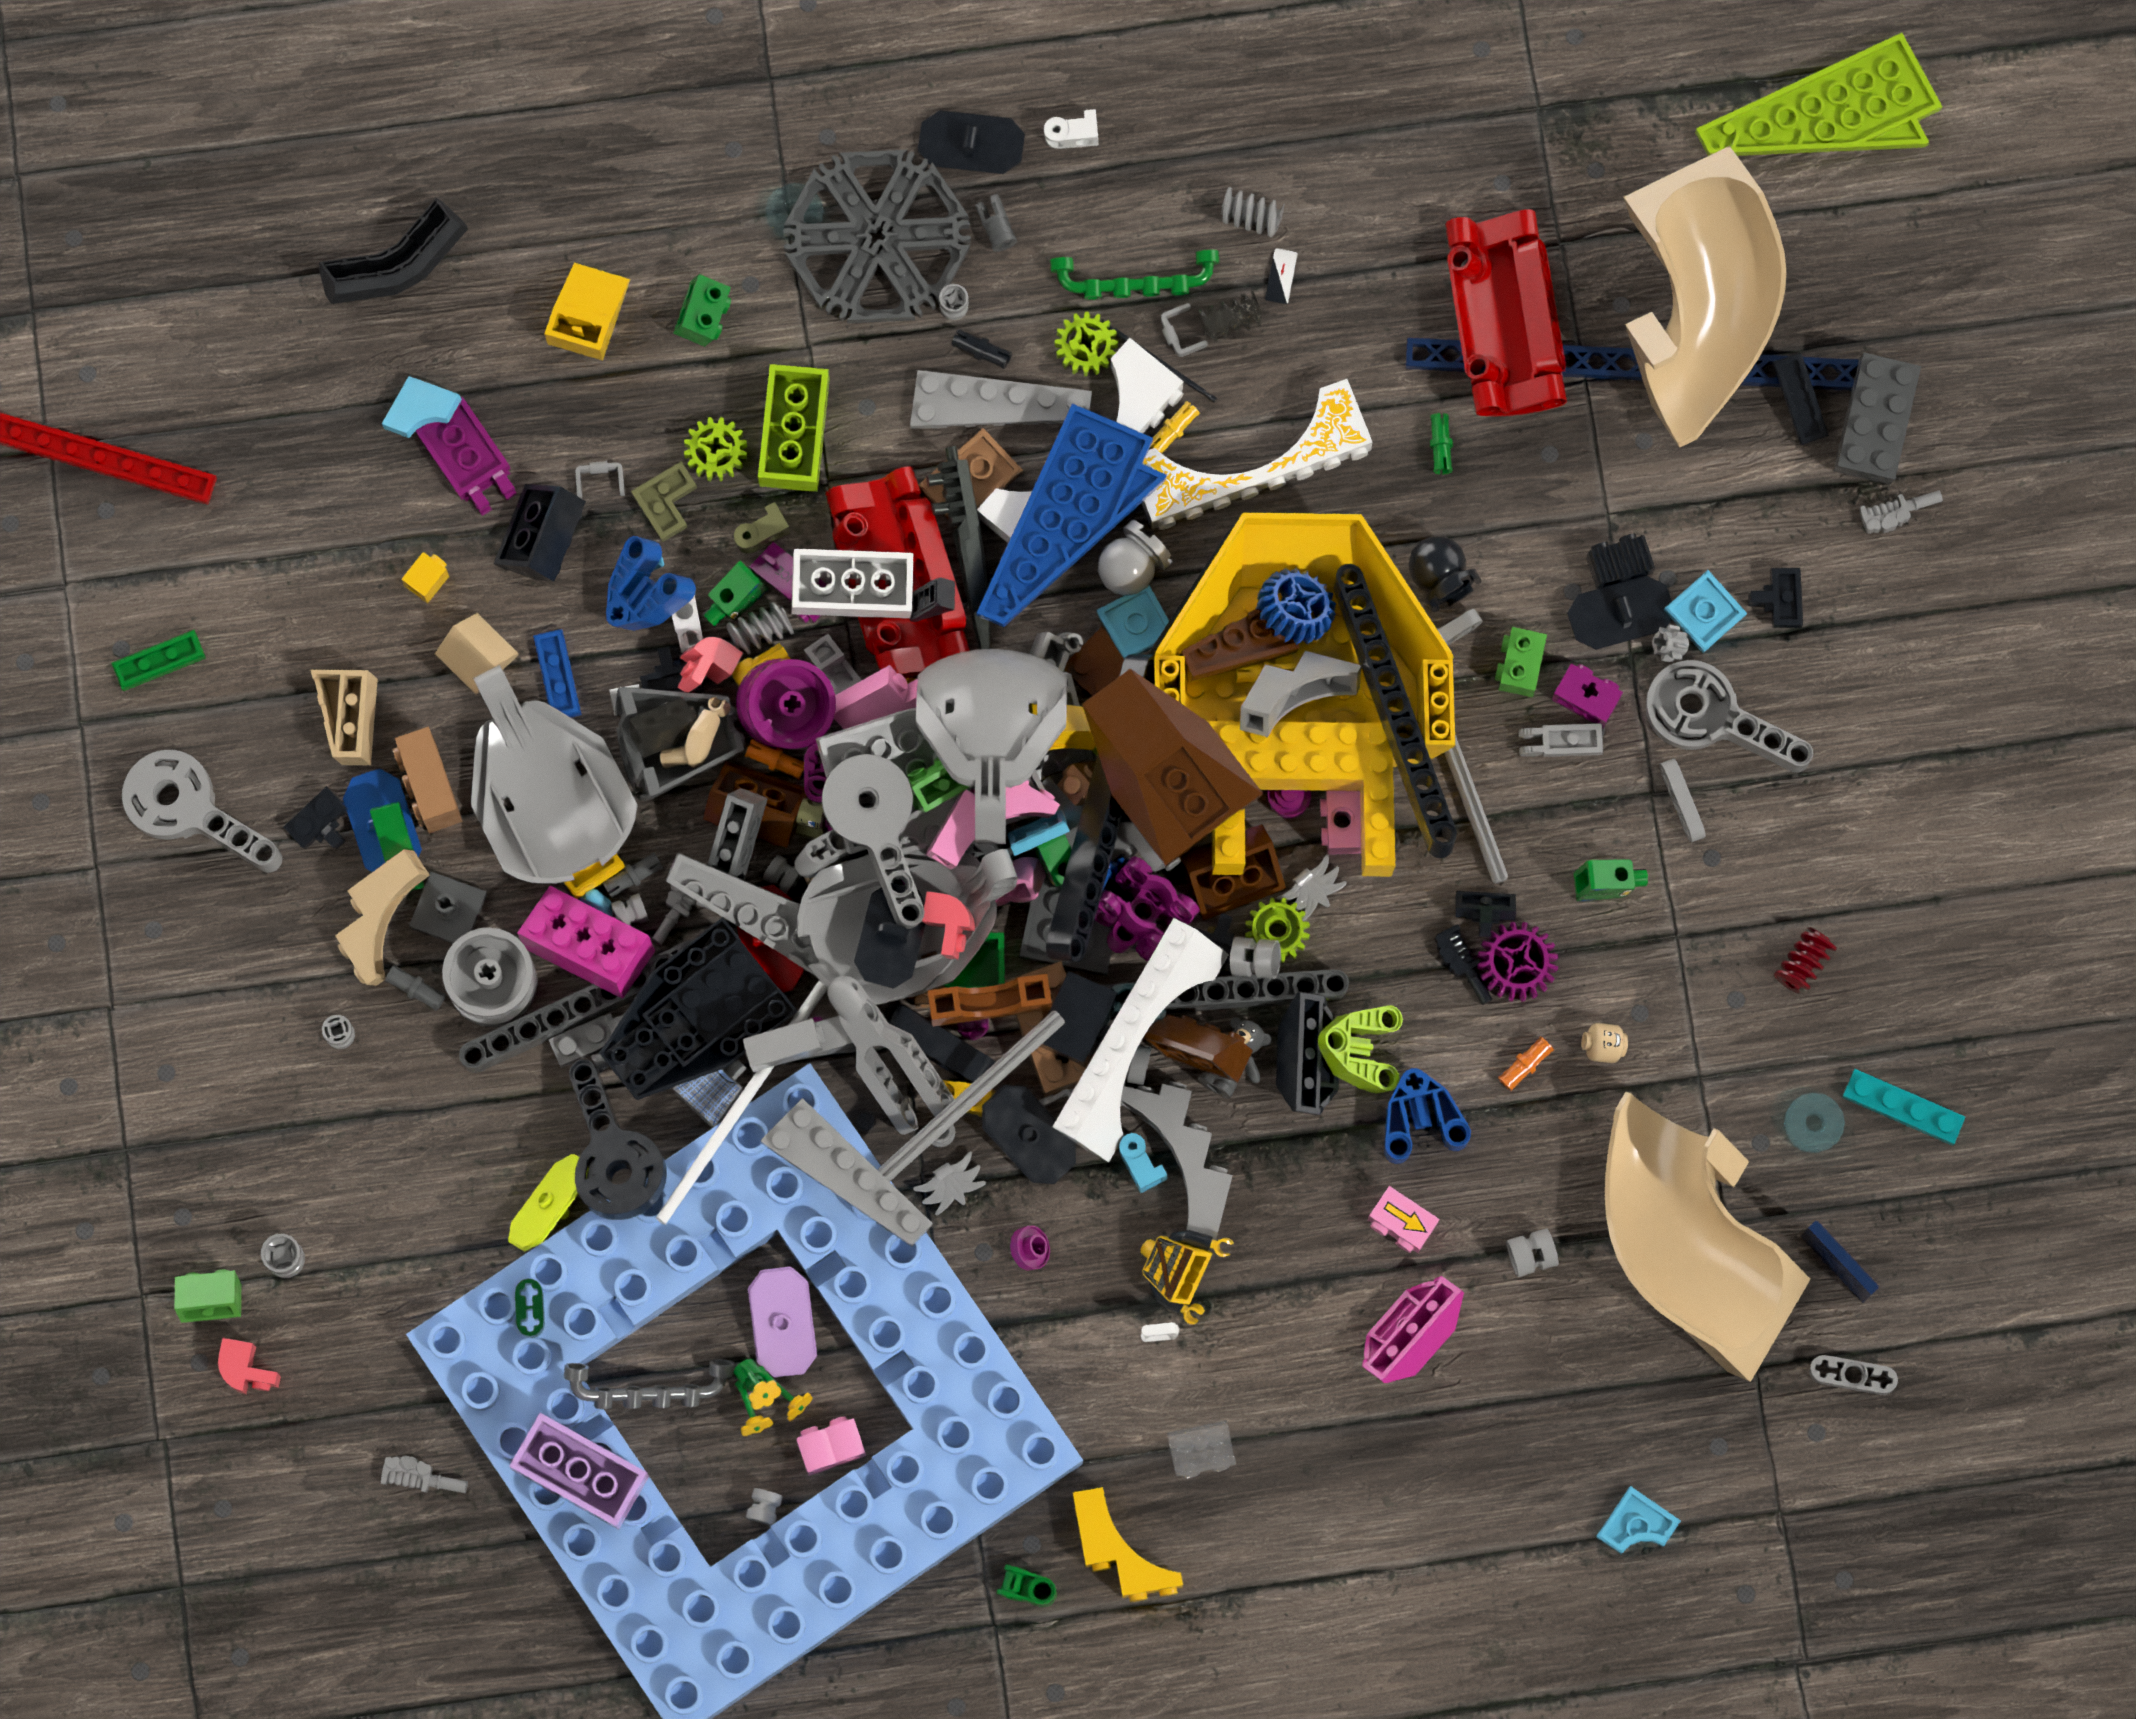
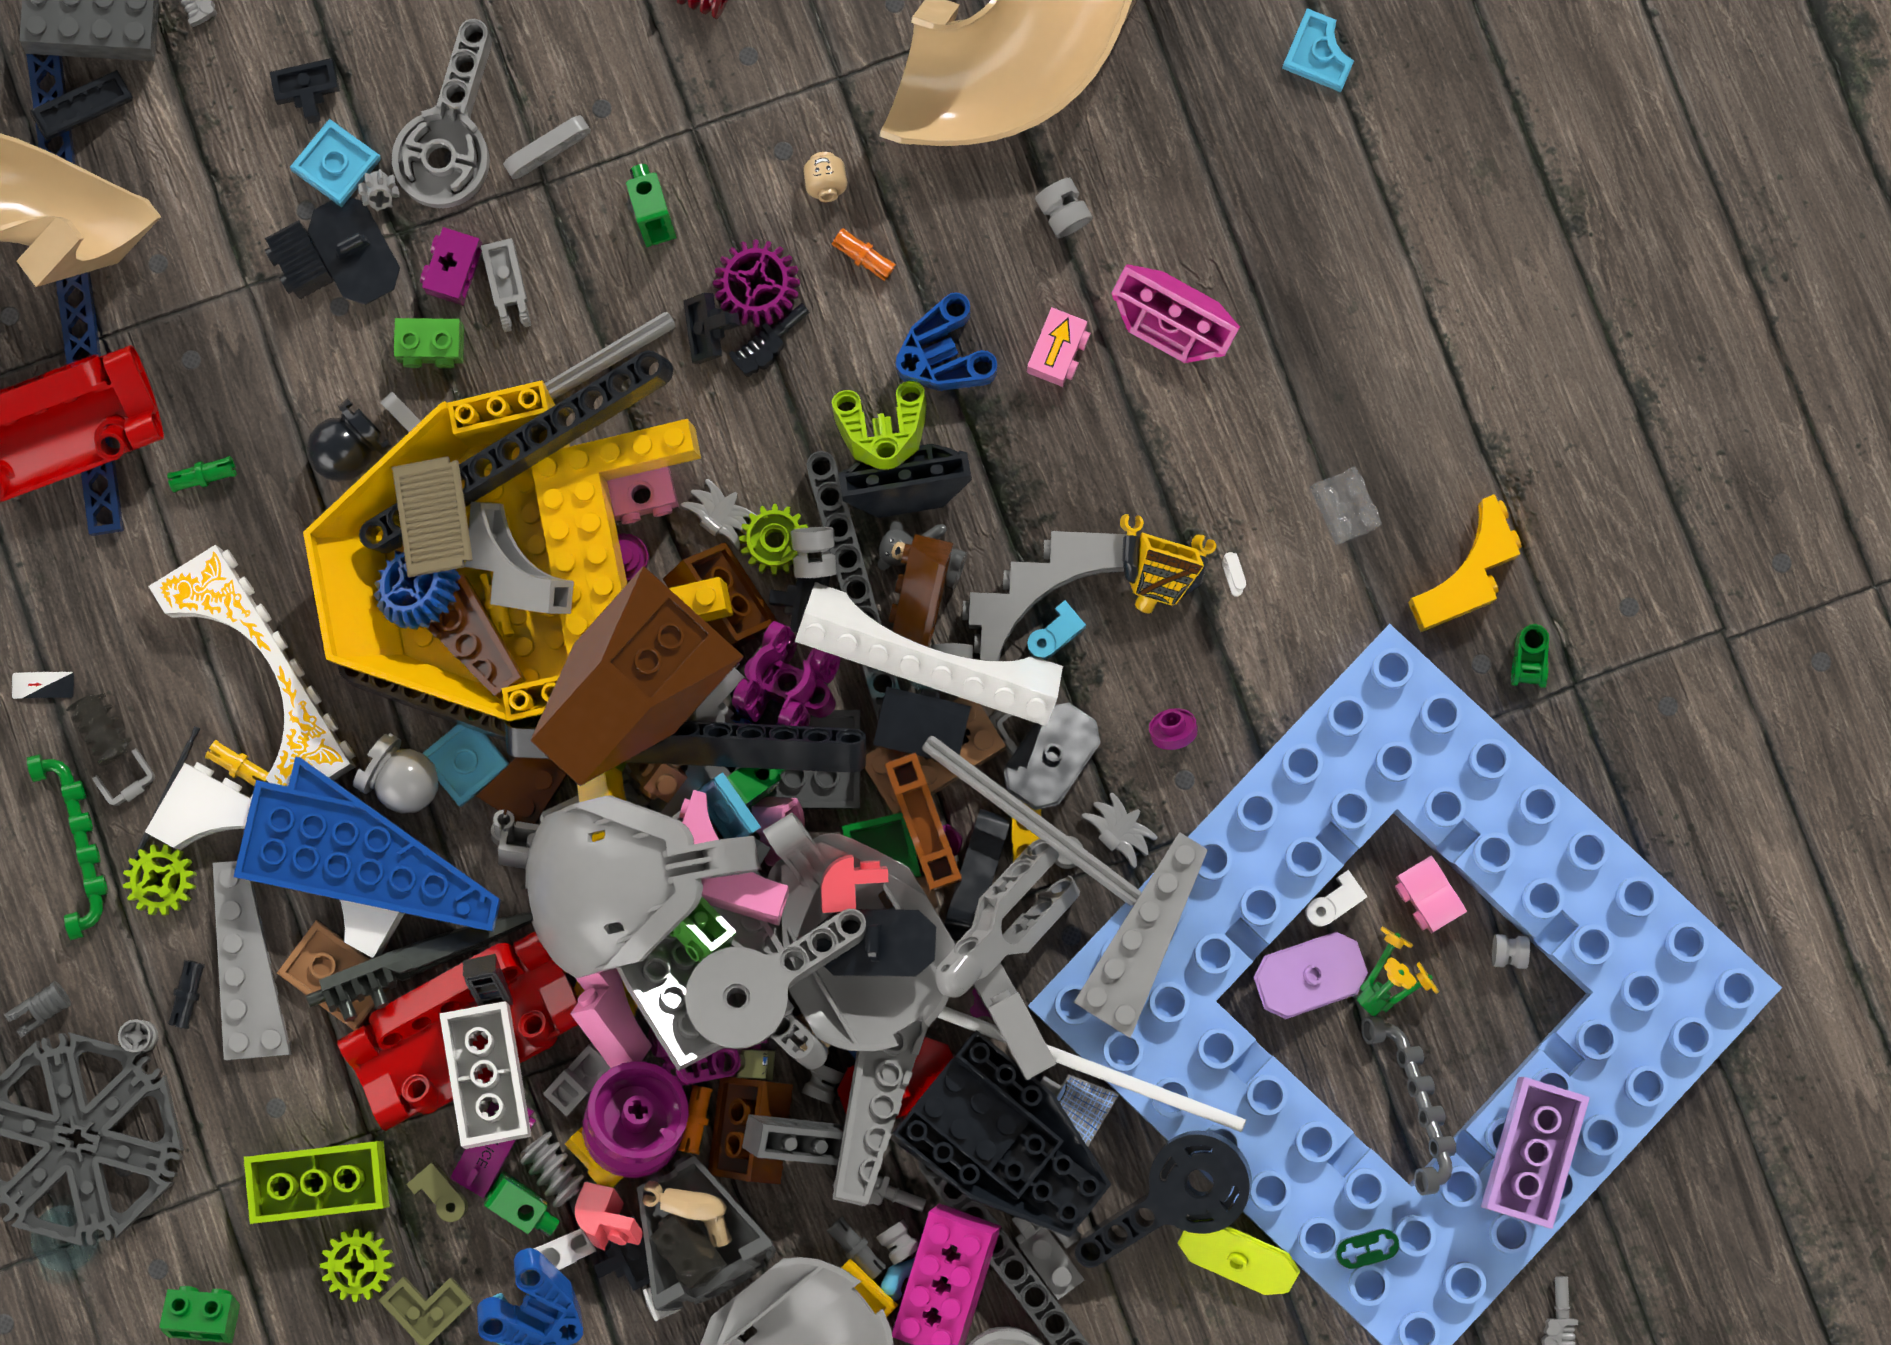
camera: 95 degrees left, 5 degrees up
(838, 1351) = (1327, 909): none -> white leg
(1352, 627) = (432, 516): none -> dark tan window

